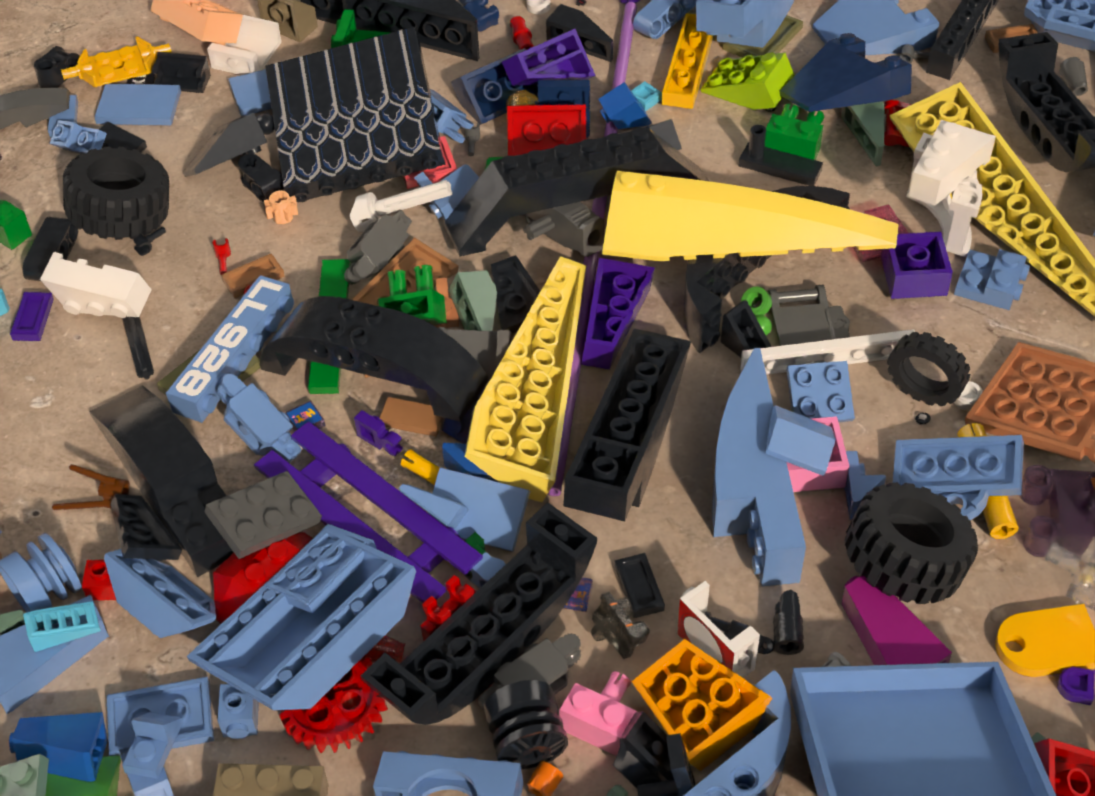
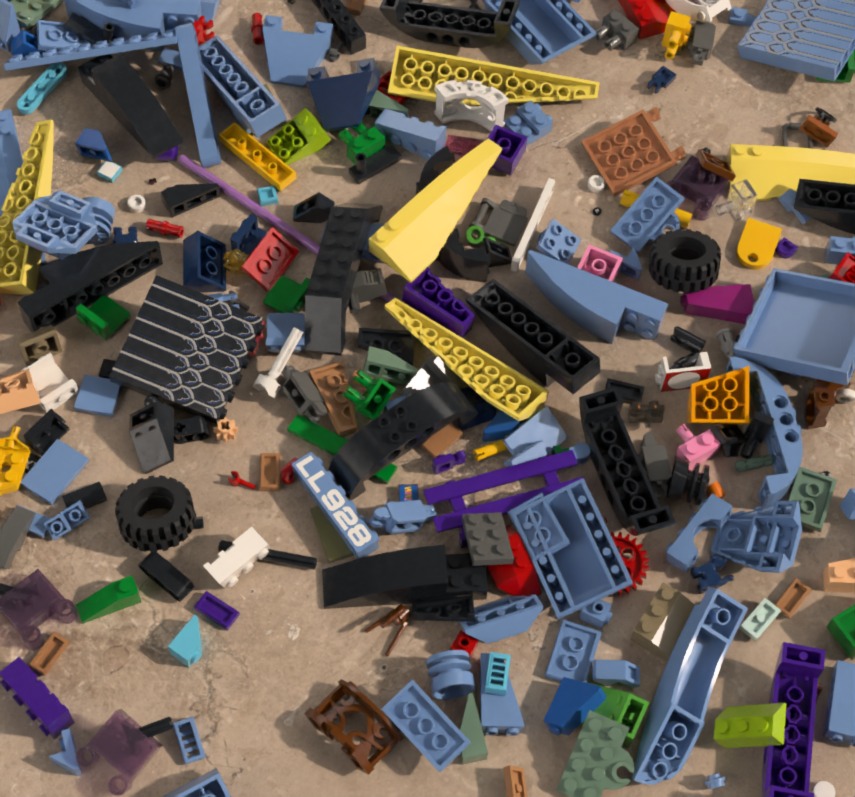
camera: 65 degrees left, 10 degrees up
(151, 744) = (598, 656): medium blue slope -> none
(438, 615) = (598, 489): red plate -> none
(552, 60) = (218, 224): dark purple wedge -> none
(623, 108) = (282, 211): blue slope -> none
(799, 440) = (601, 267): medium blue slope -> none
(852, 166) = (411, 133): none -> medium blue wedge
(936, 351) = (590, 176): black tyre -> none
(949, 159) = (472, 89): white wedge -> none

